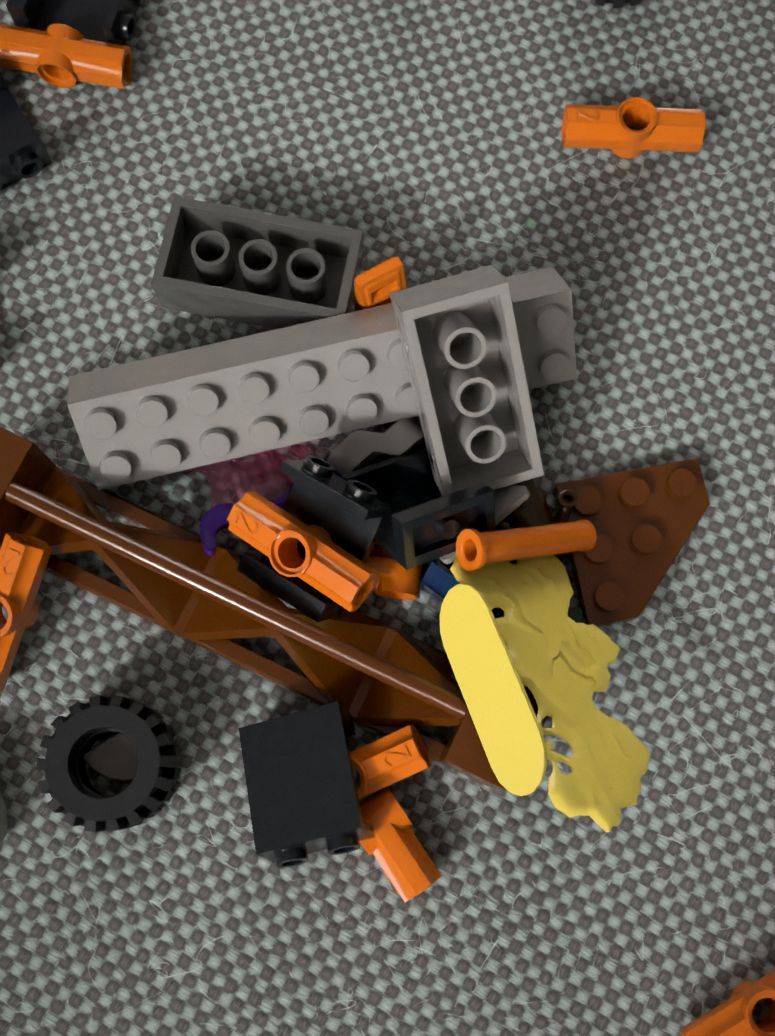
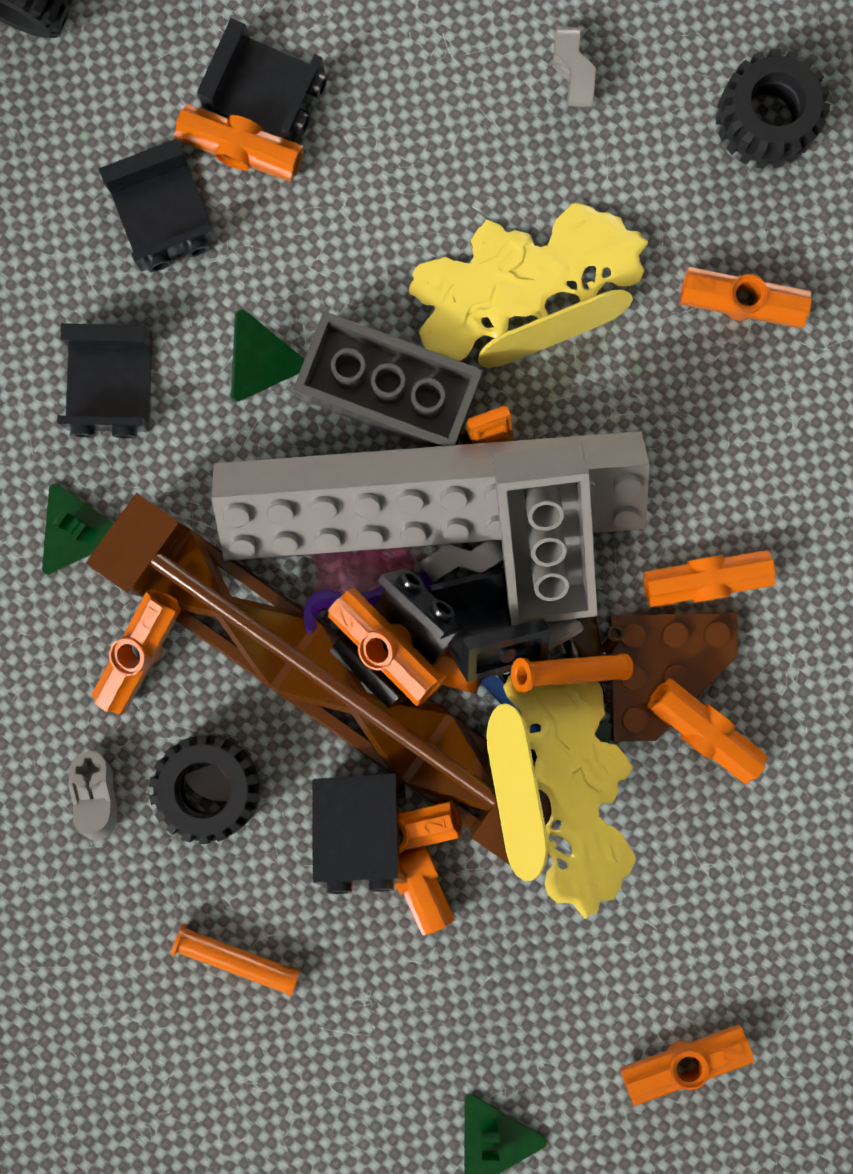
camera: 15 degrees right, 10 degrees up
(109, 264) = (259, 358): none -> dark green piece
(175, 978) = (235, 960): none -> orange pin
(381, 146) = (517, 278): none -> light yellow plant
(658, 424) = (709, 578): none -> orange piece
(696, 593) = (707, 731): none -> orange piece

